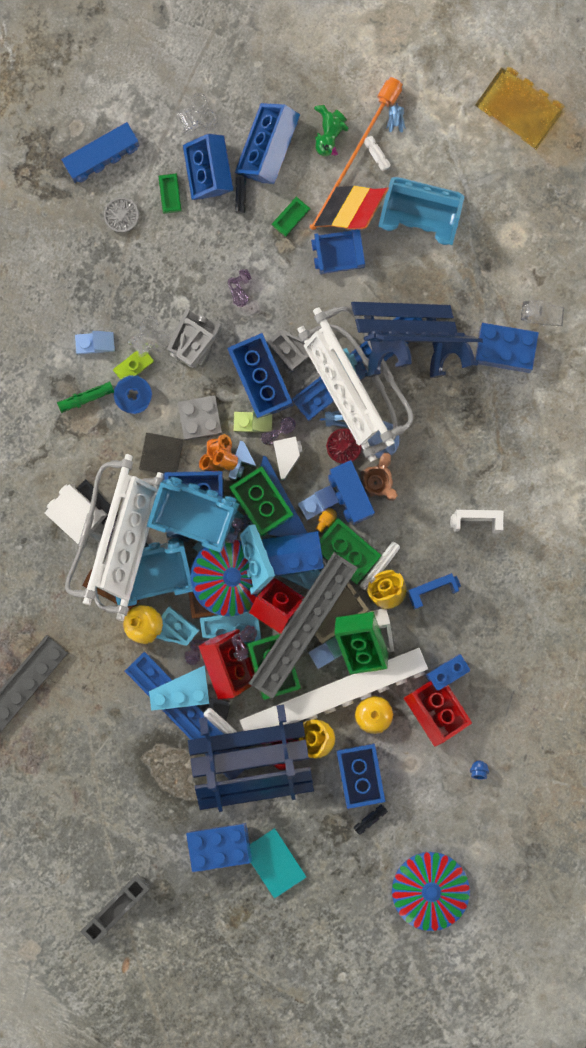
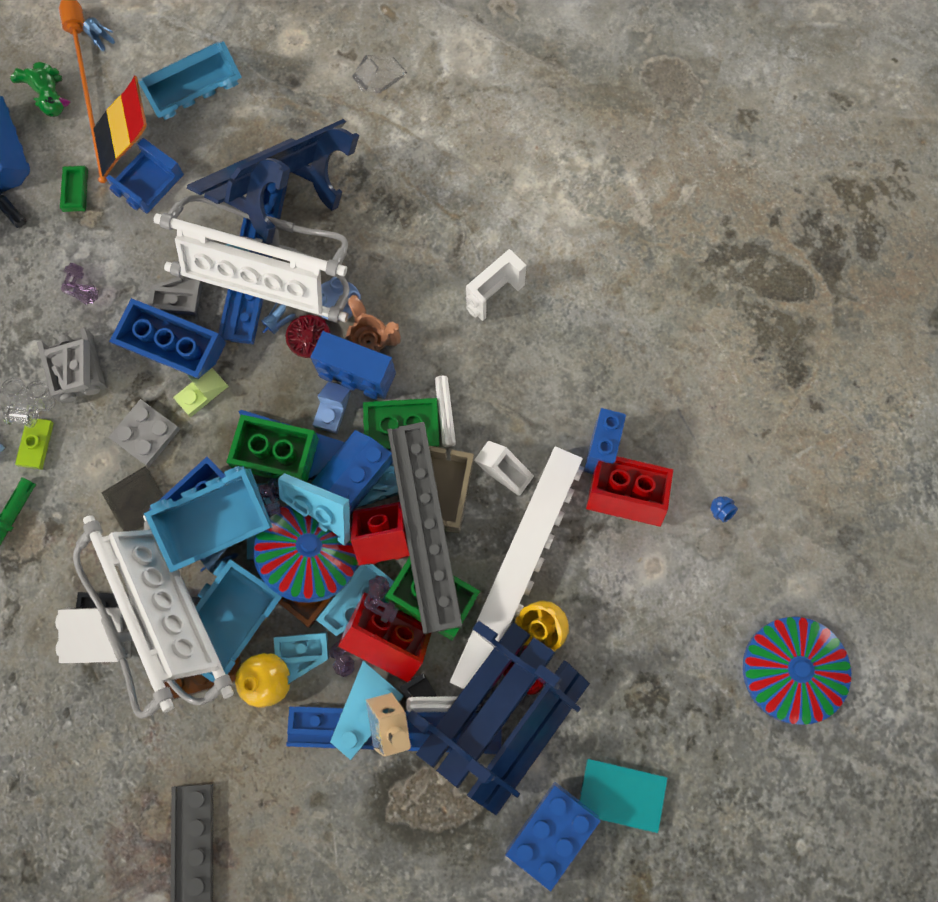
camera: 45 degrees left, 10 degrees down
(128, 404) = (49, 455): blue plate -> none
(184, 715) = (388, 729): none -> tan torso
(218, 455) = (192, 446): orange piece -> none
(243, 457) = (219, 432): light blue slope -> none
(287, 426) = (236, 364): clear purple piece -> none
(287, 455) = (260, 389): white slope -> none
(325, 653) = (473, 533): light blue slope -> none
(326, 519) = (353, 414): light orange cylinder -> none
(360, 776) = (621, 622): blue brick -> none
(361, 643) = (496, 489): green brick -> none
(370, 819) = (670, 656): black axle -> none
(374, 715) = (574, 552): yellow cylinder -> none
(377, 153) = (106, 74): white axle -> none
(387, 590) = (473, 421): yellow cylinder -> none
(414, 593) = (504, 402): blue panel -> none
(506, 347) = (381, 123): blue brick -> none

